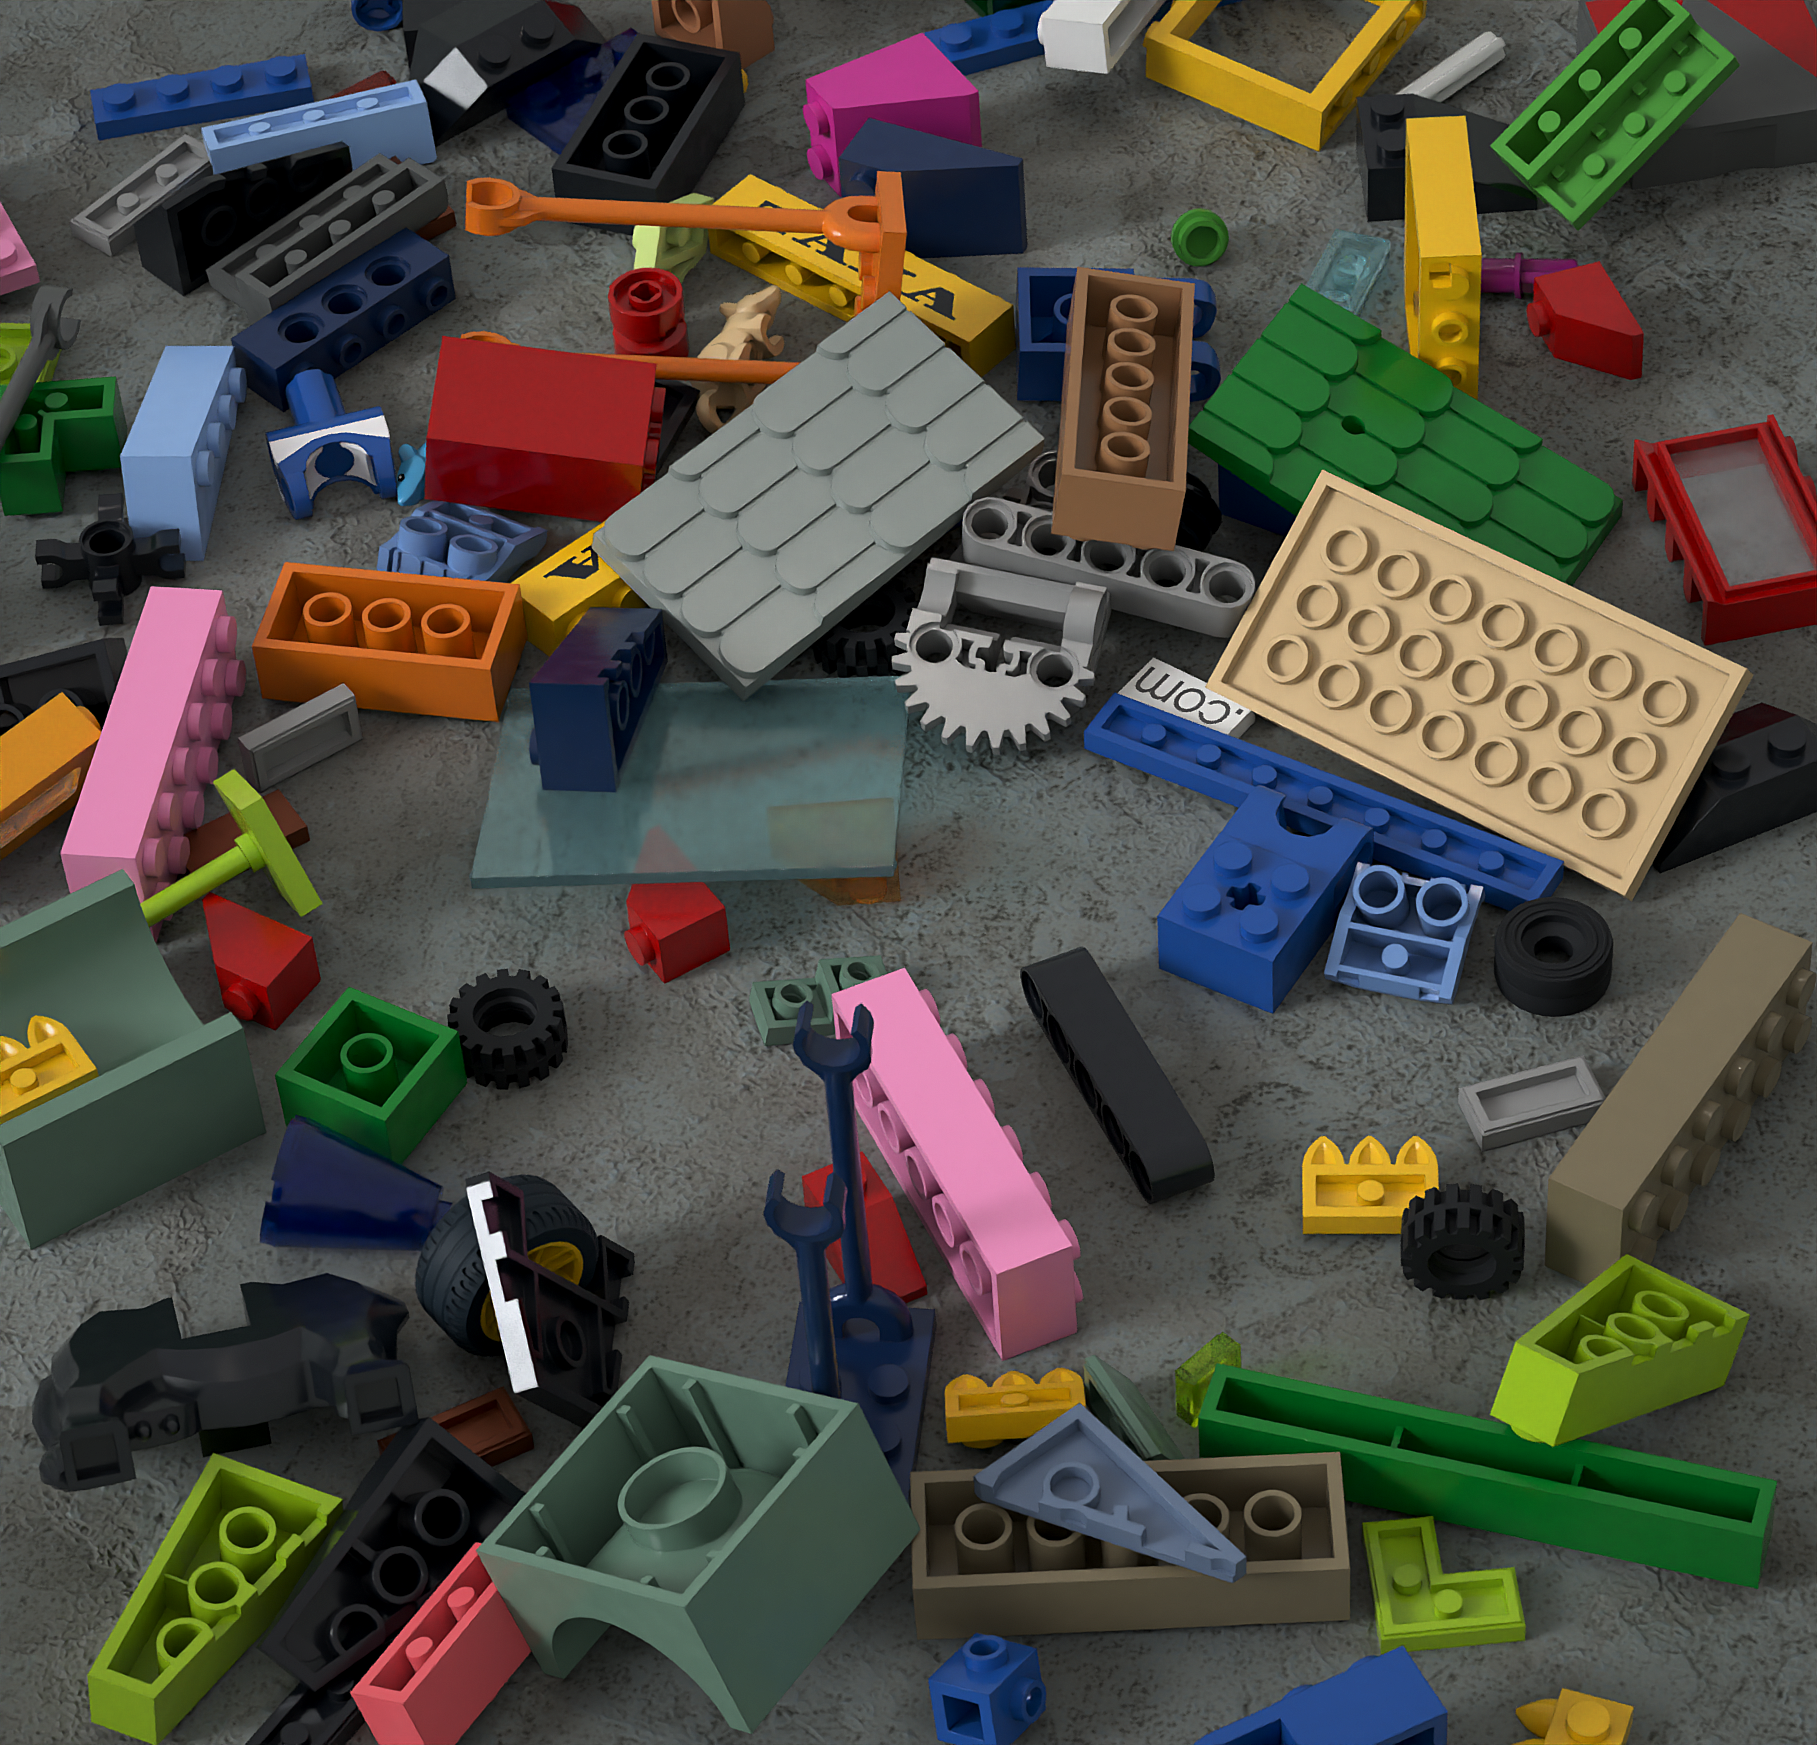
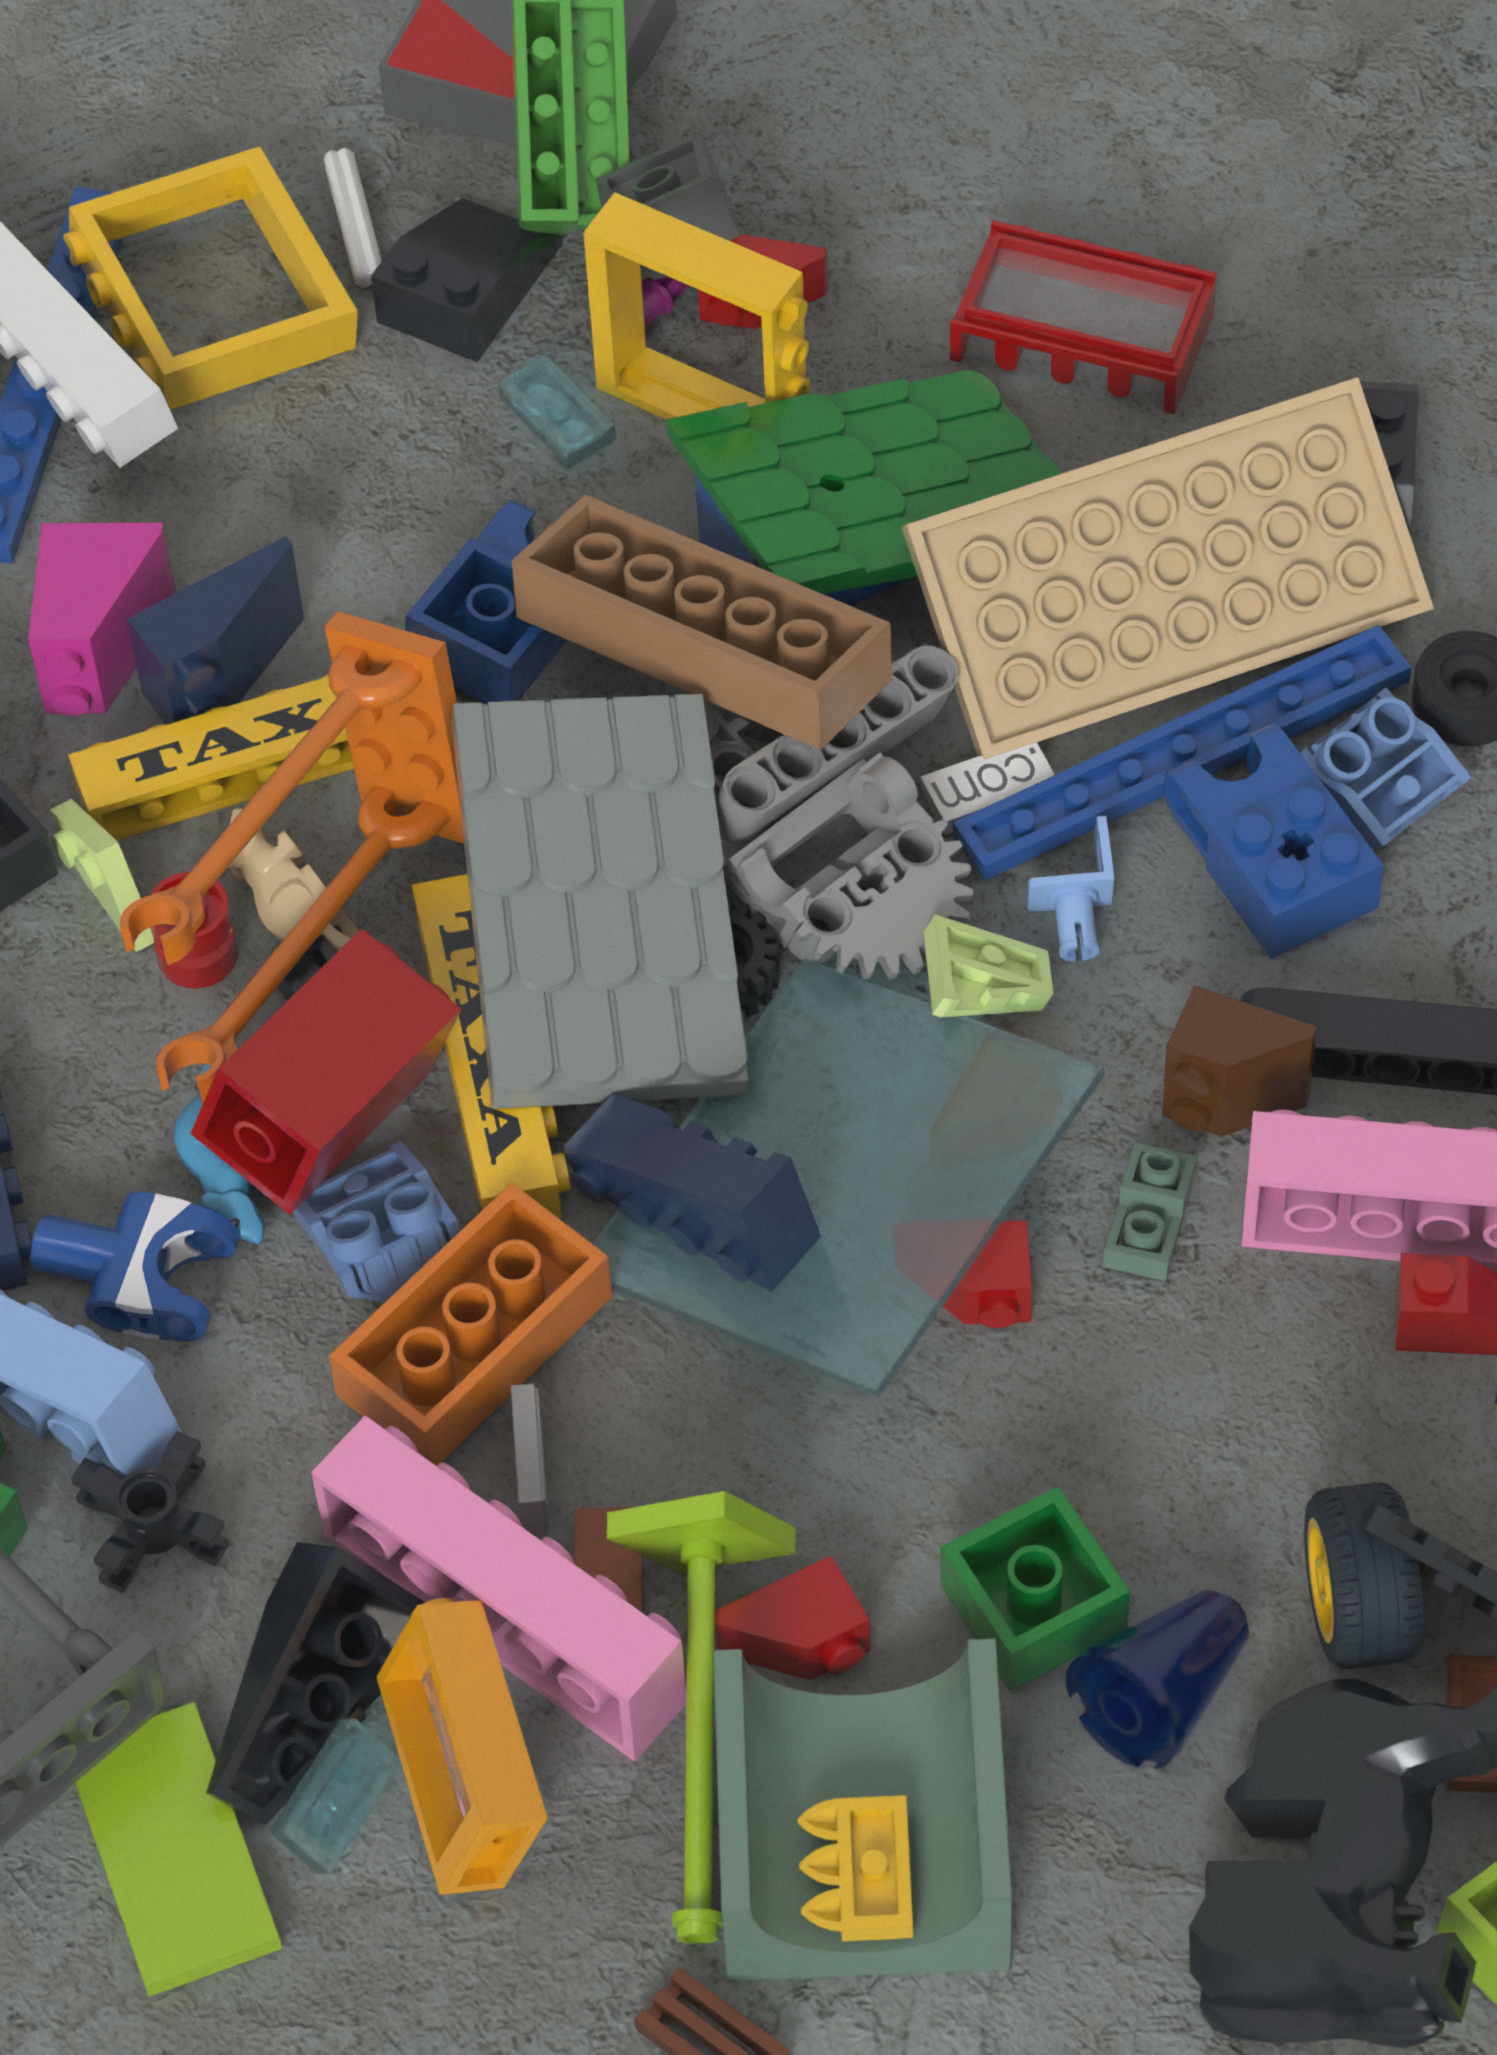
camera: 60 degrees left, 10 degrees up
(507, 1001) = (1021, 1426): black tyre -> none
(963, 773) = (983, 971): none -> yellowish green wing
(979, 961) = (1234, 1062): none -> reddish brown slope
(1105, 803) = (1074, 898): none -> light blue bracket
(1199, 237) = (417, 481): bright green plate -> none
(1574, 215) = (679, 183): none -> dark grey slope

